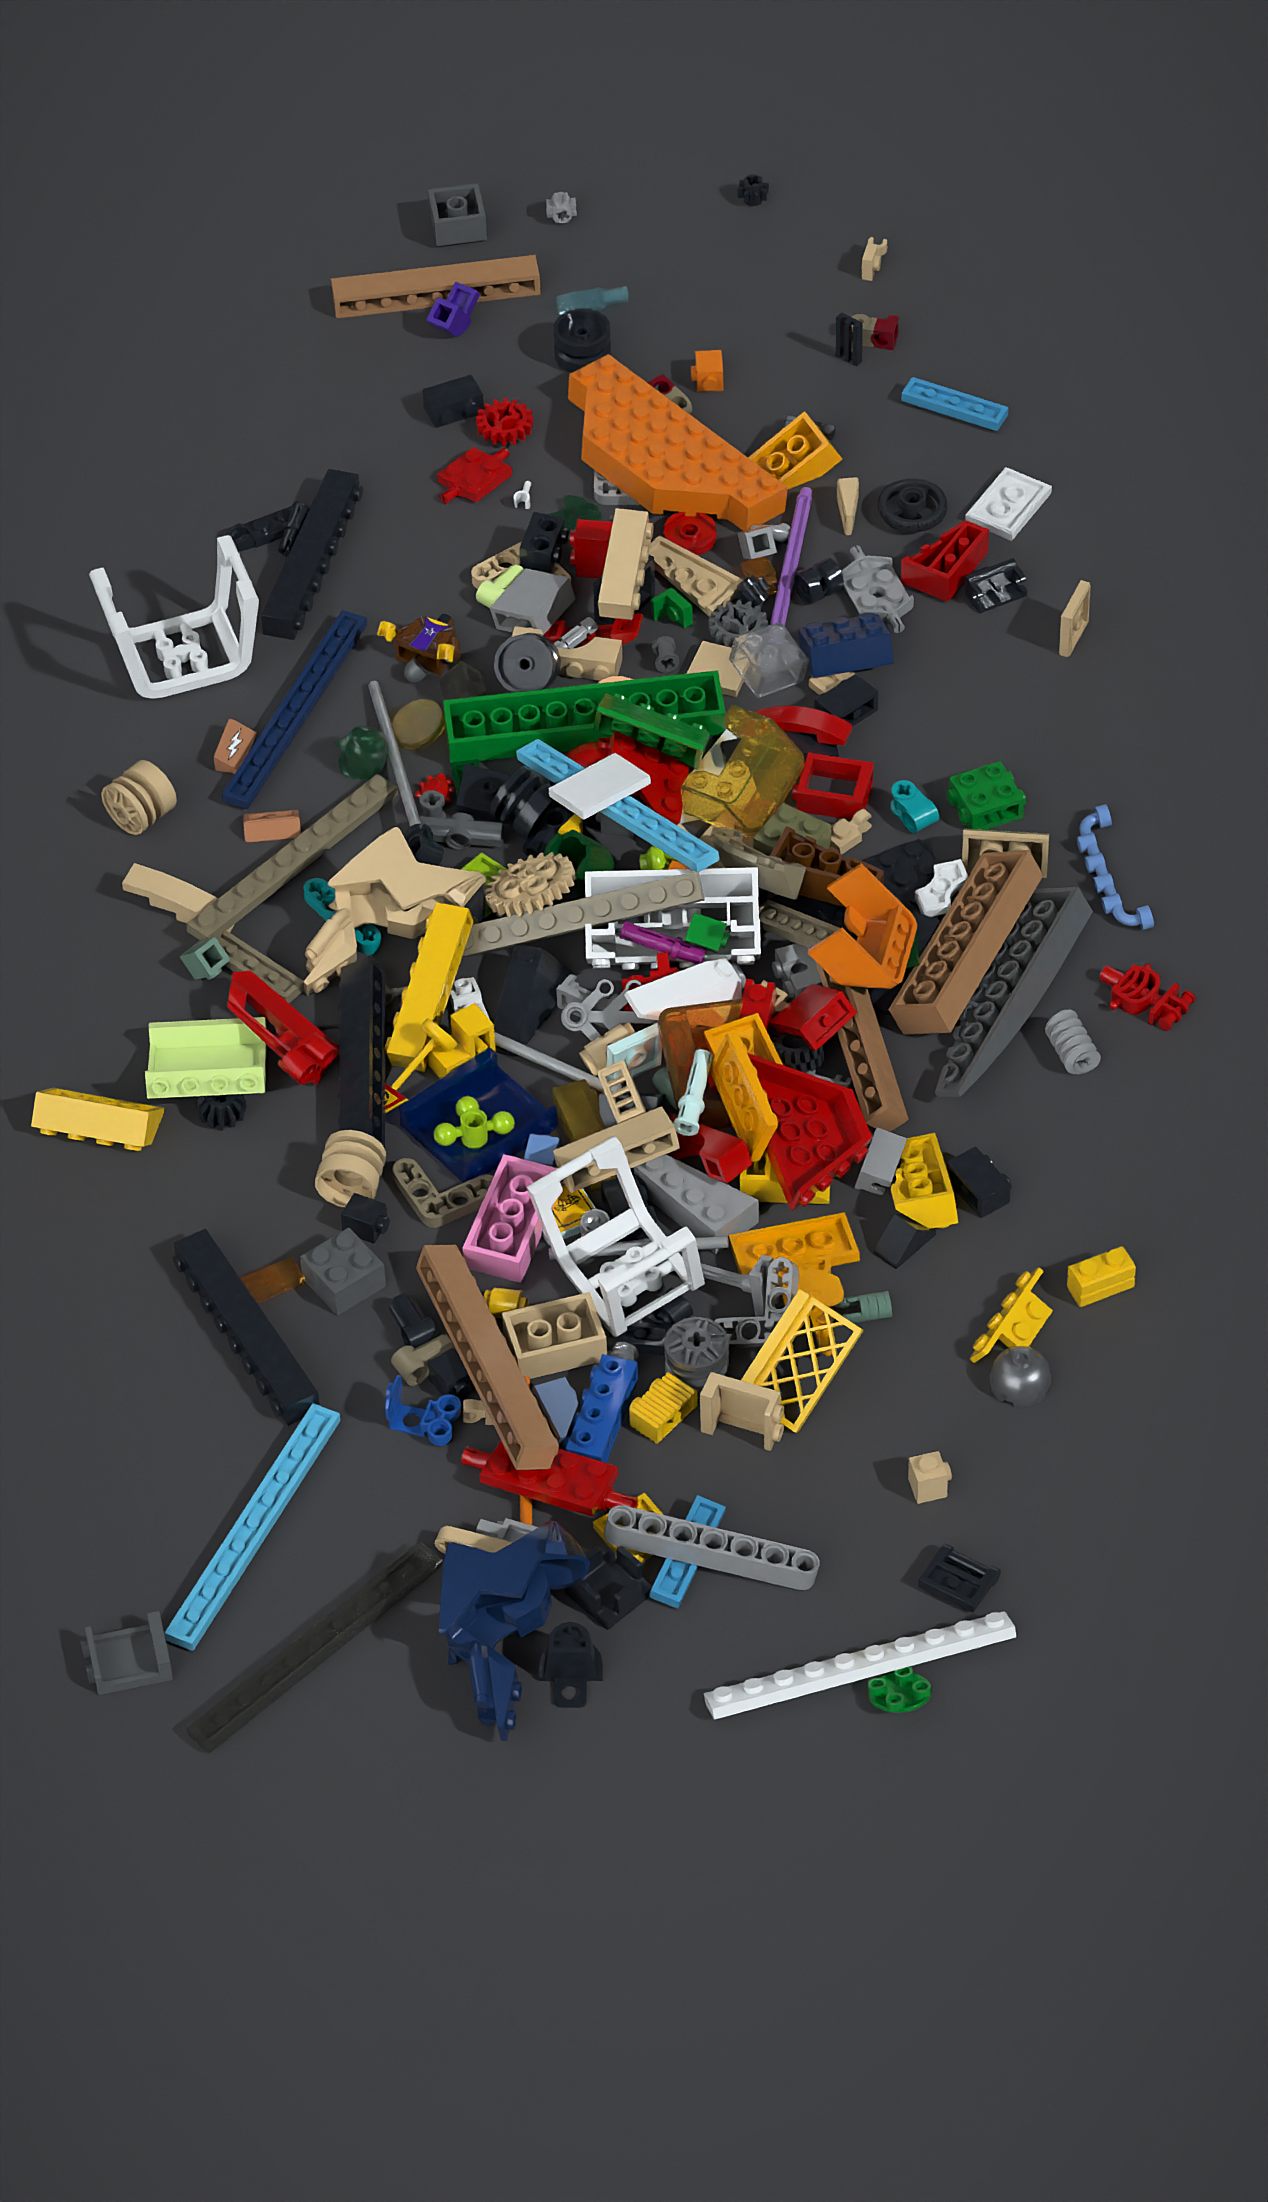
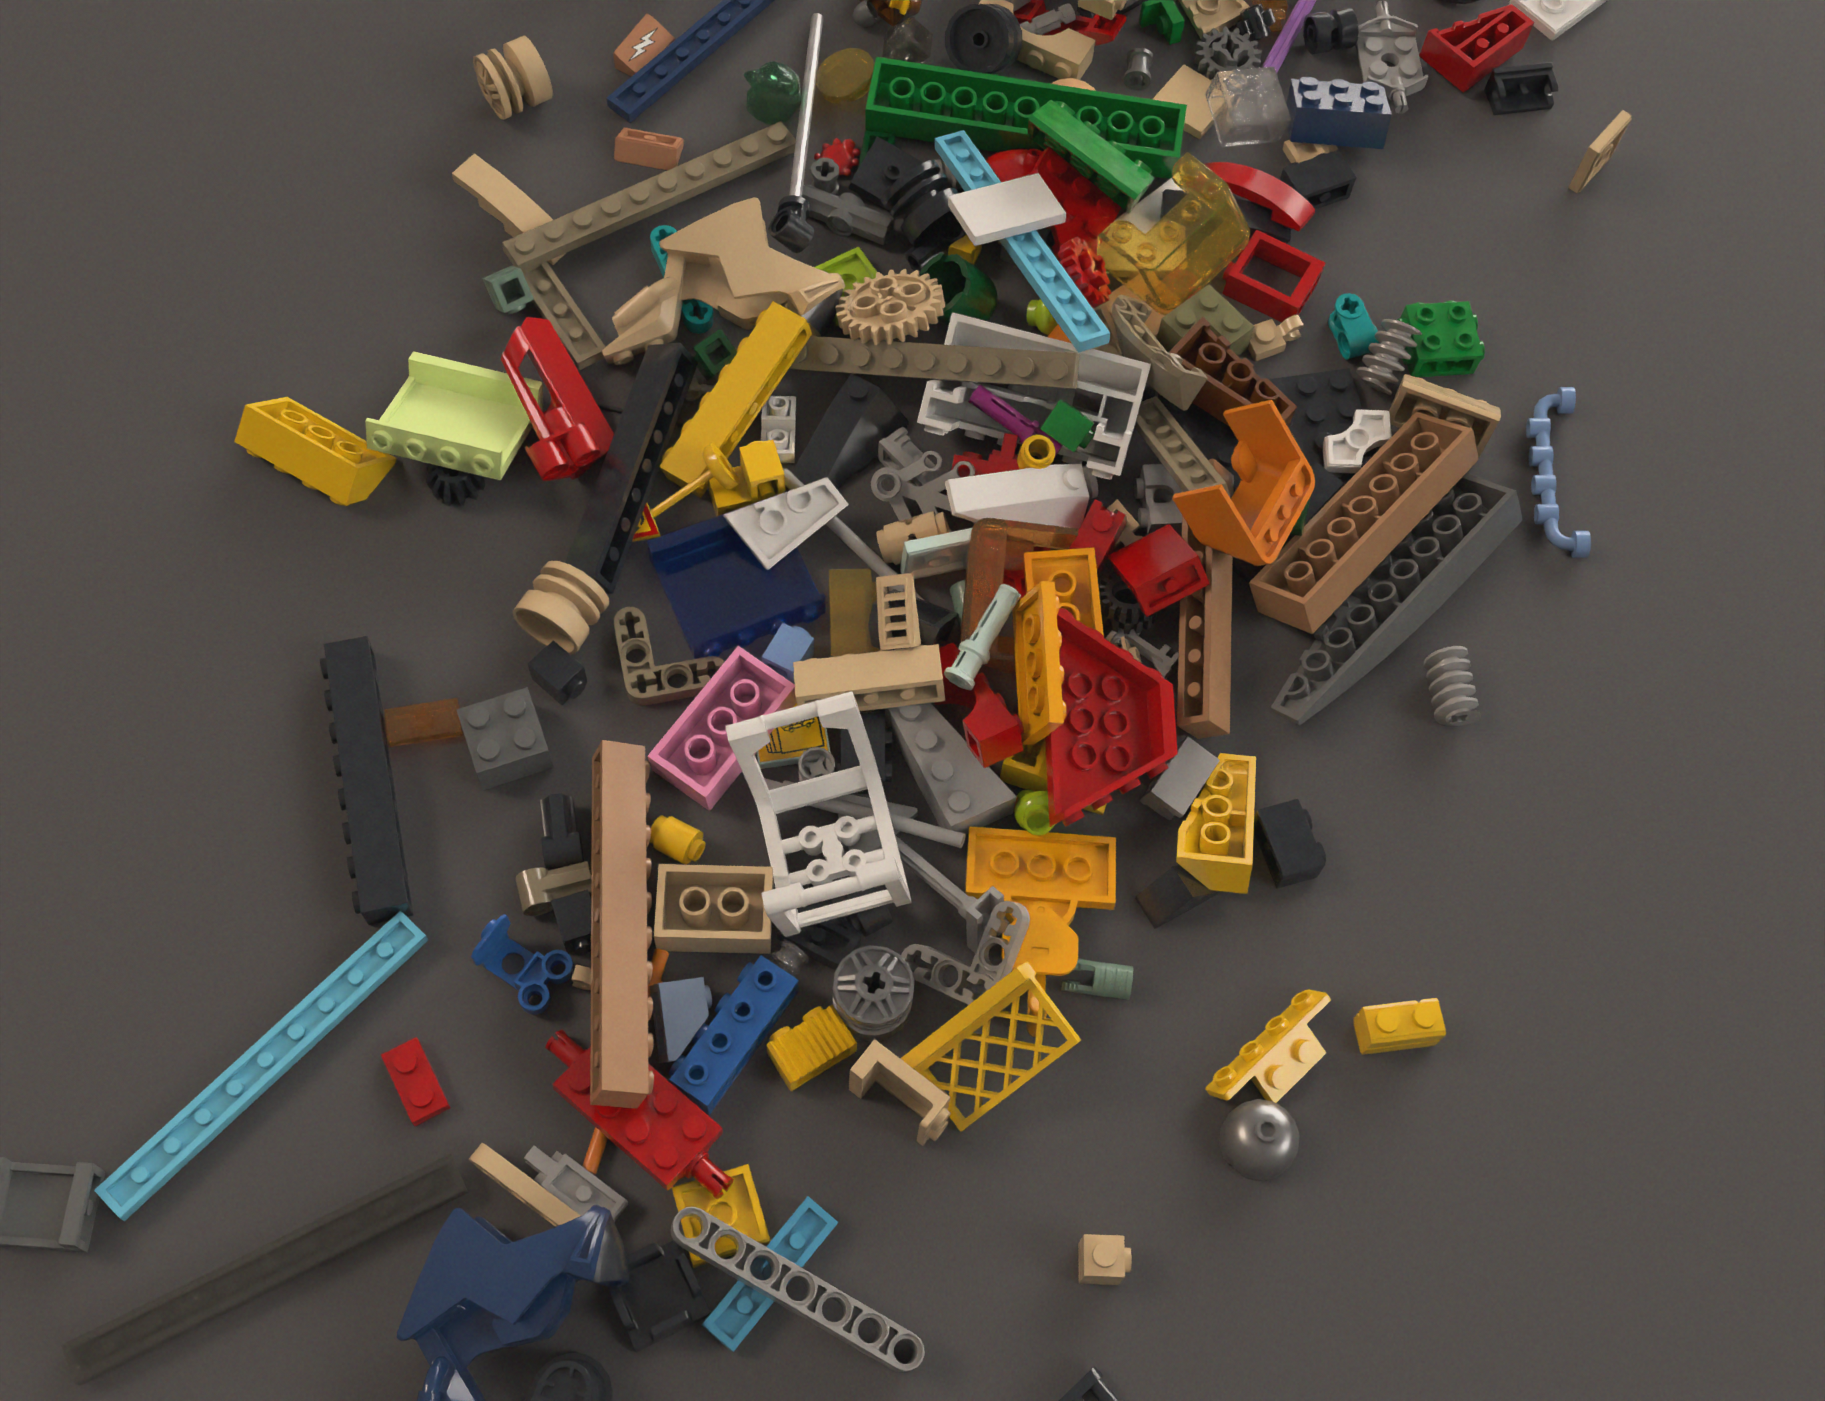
camera: 10 degrees right, 15 degrees up
(371, 1510) = (415, 1081): none -> red plate
(397, 960) = (714, 354): none -> dark green brick
(473, 1126) = (725, 565): lime piece -> none
(503, 1063) = (786, 520): none -> white wing
(679, 813) = (1085, 270): none -> red gear
(688, 956) = (1036, 446): none -> yellow brick
(775, 1210) = (1032, 811): none -> lime animal
(944, 818) = (1386, 354): none -> light grey piece
(1137, 998) = (1576, 668): red torso -> none

